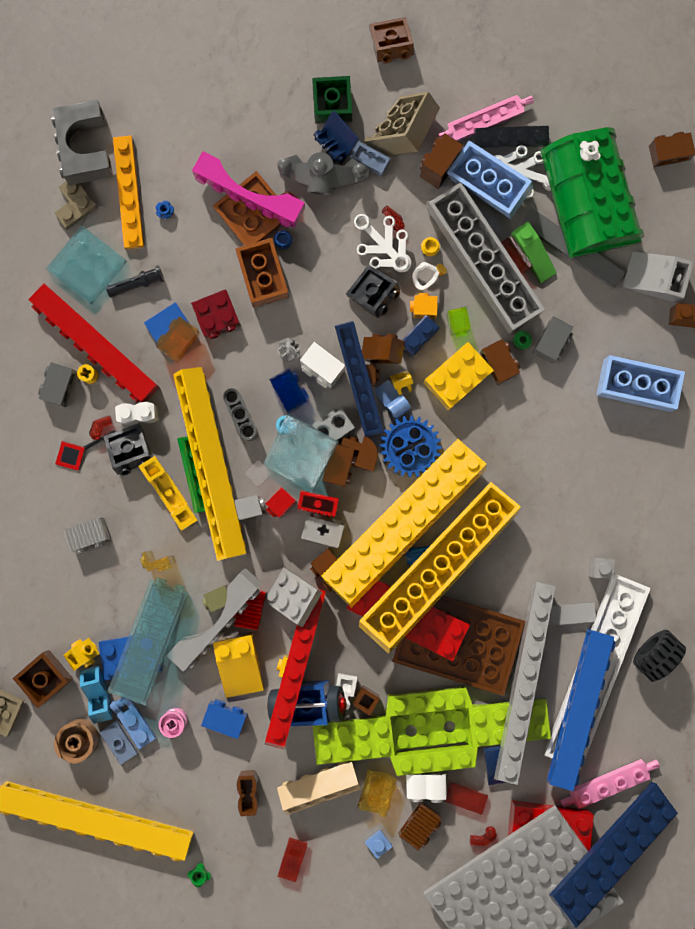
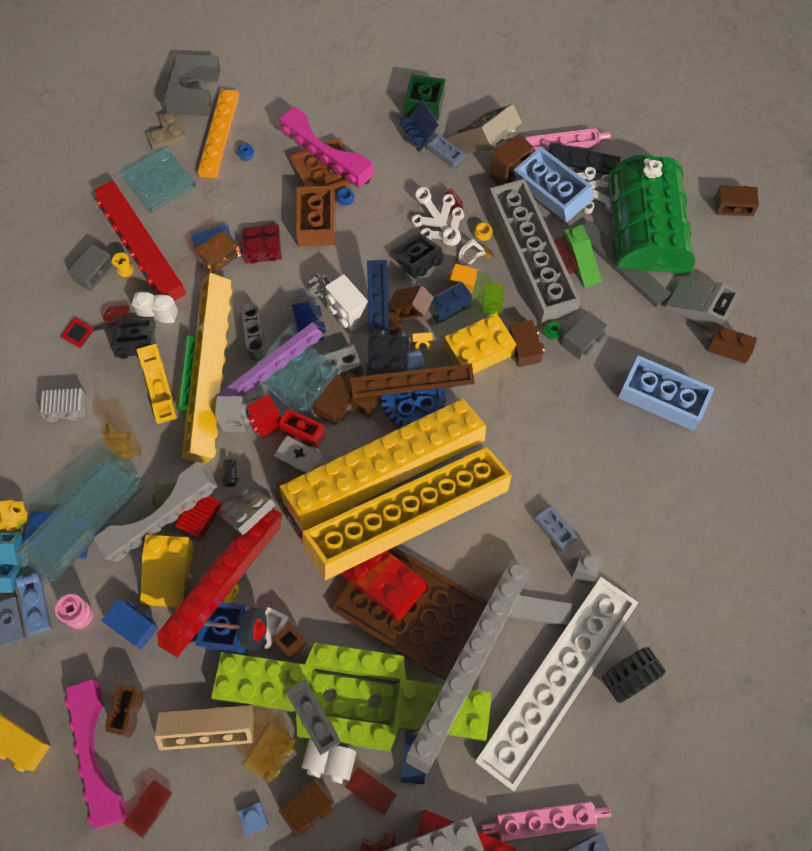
camera: 20 degrees right, 20 degrees down
(143, 279) = (205, 200): black pin -> none
(198, 881) = (31, 803): green plate -> none
(256, 864) = (104, 802): none -> dark pink arch
(264, 561) = (230, 473): none -> black pin
(276, 448) = (273, 362): none -> medium lavender plate
(321, 173) = (397, 152): dark grey piece -> none
(378, 413) = (387, 353): none -> black plate
(392, 40) = (492, 67): reddish brown plate -> none
(407, 761) = (313, 717): none -> dark grey plate
(408, 435) = (412, 381): none -> reddish brown plate
(566, 537) = (555, 528): none -> sand blue plate
(580, 710) = (527, 716): blue brick -> none

